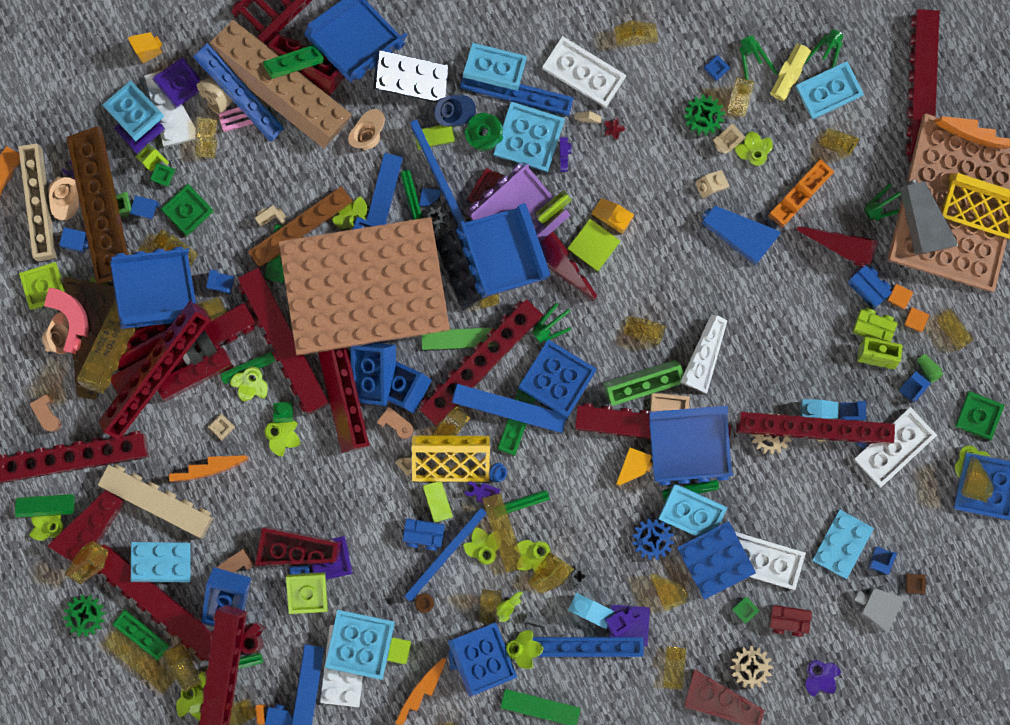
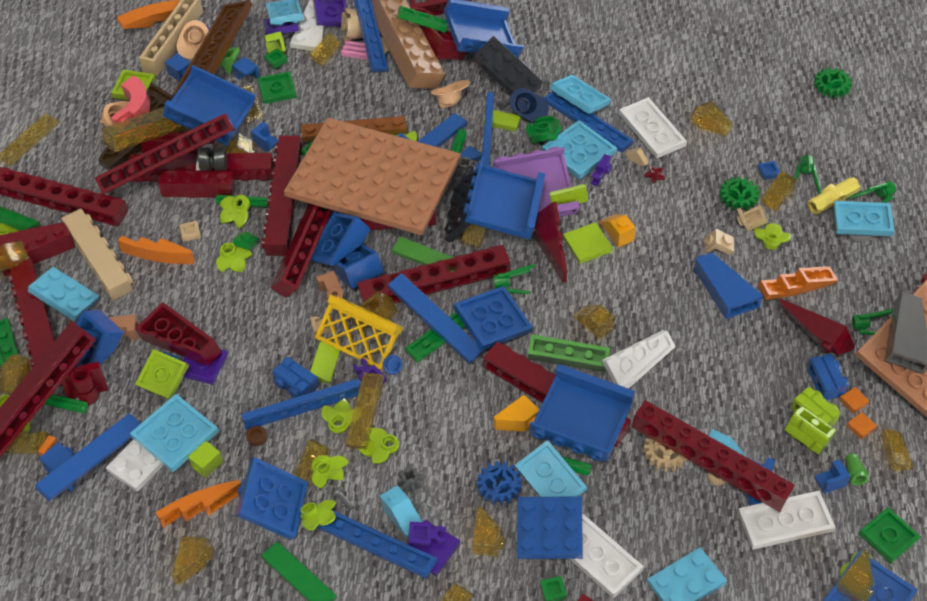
camera: 30 degrees right, 30 degrees down
(45, 415) = (64, 160): nougat leg -> none
(266, 215) = (335, 111): tan bracket -> none
(527, 501) = (403, 400): green axle -> none
(550, 574) = (383, 463): clear yellow slope -> none
(839, 142) = (855, 260): clear yellow slope -> none

